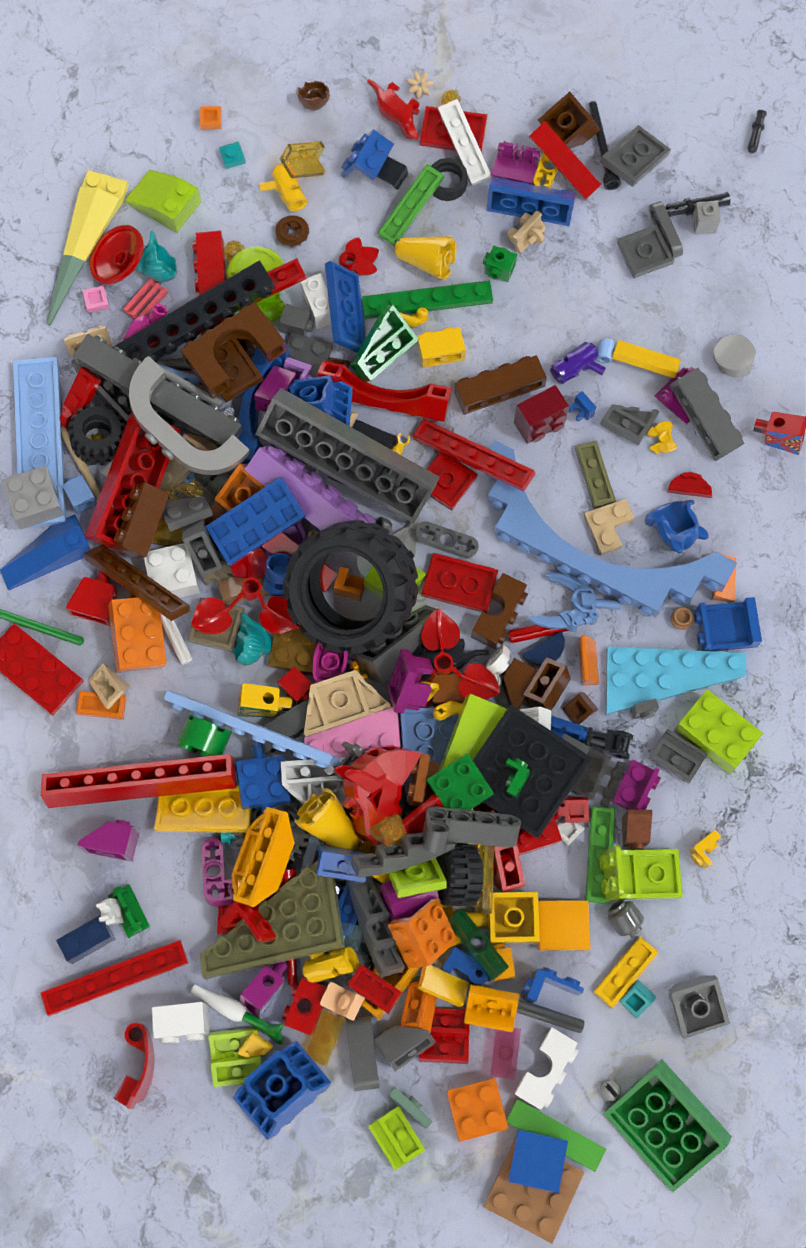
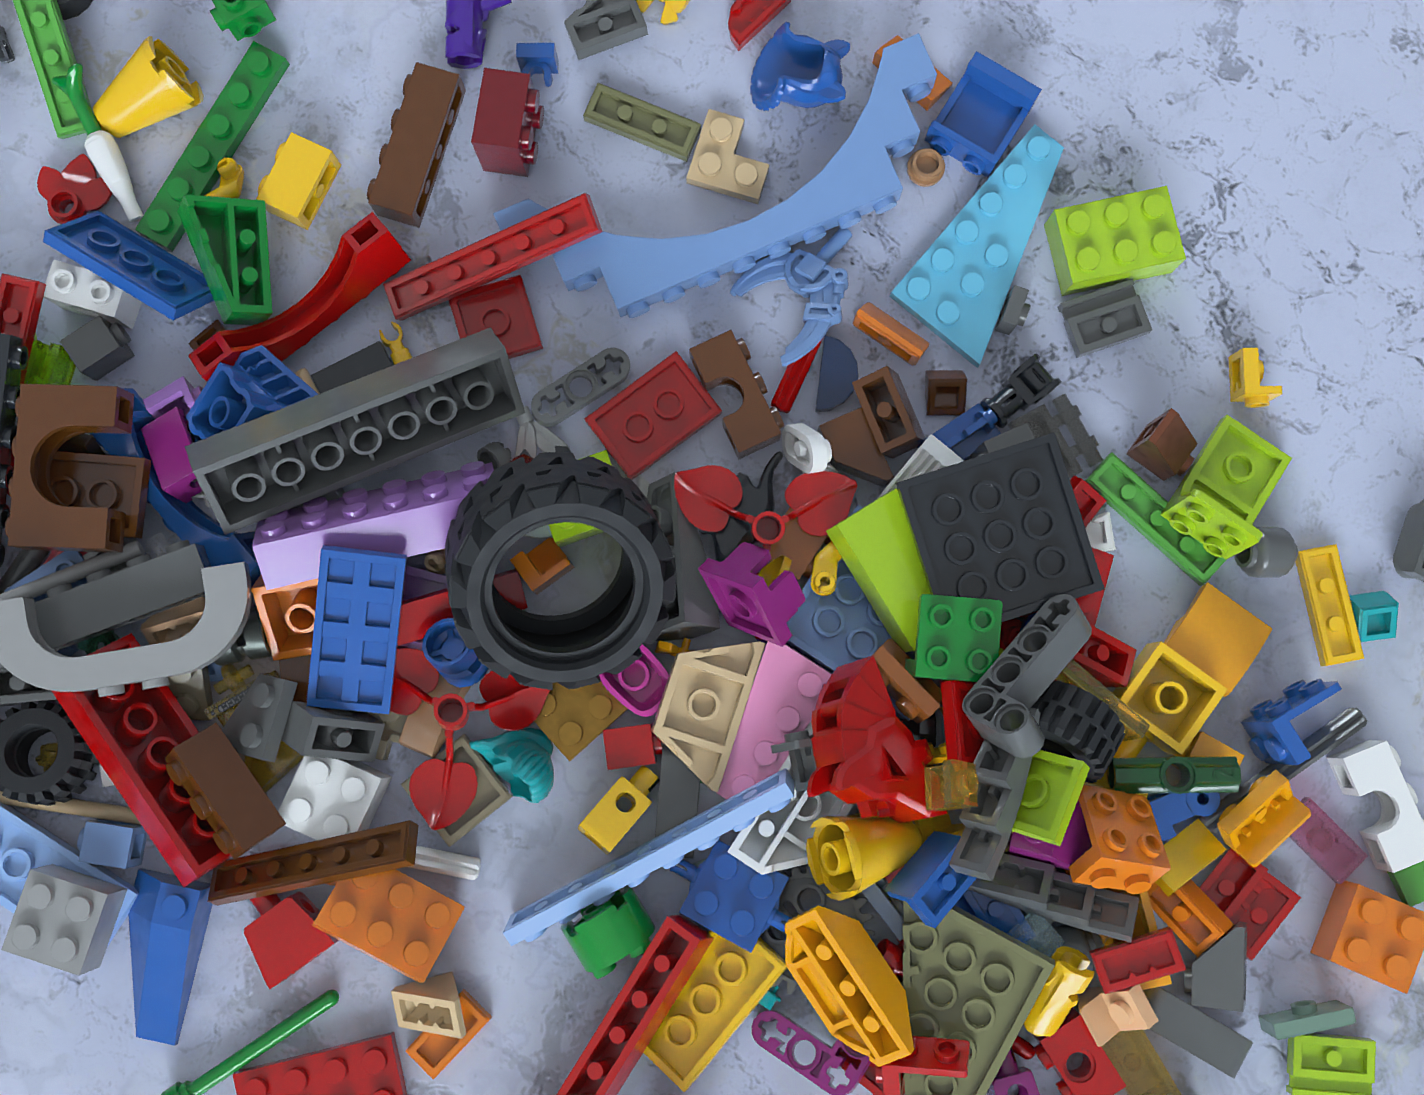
camera: 50 degrees left, 10 degrees up
(309, 350) = (157, 363): dark grey wing -> none
(388, 253) = (100, 144): none -> white piece
(517, 781) = (1014, 557): green bracket -> none
(636, 786) = (1106, 401): magenta bracket -> none

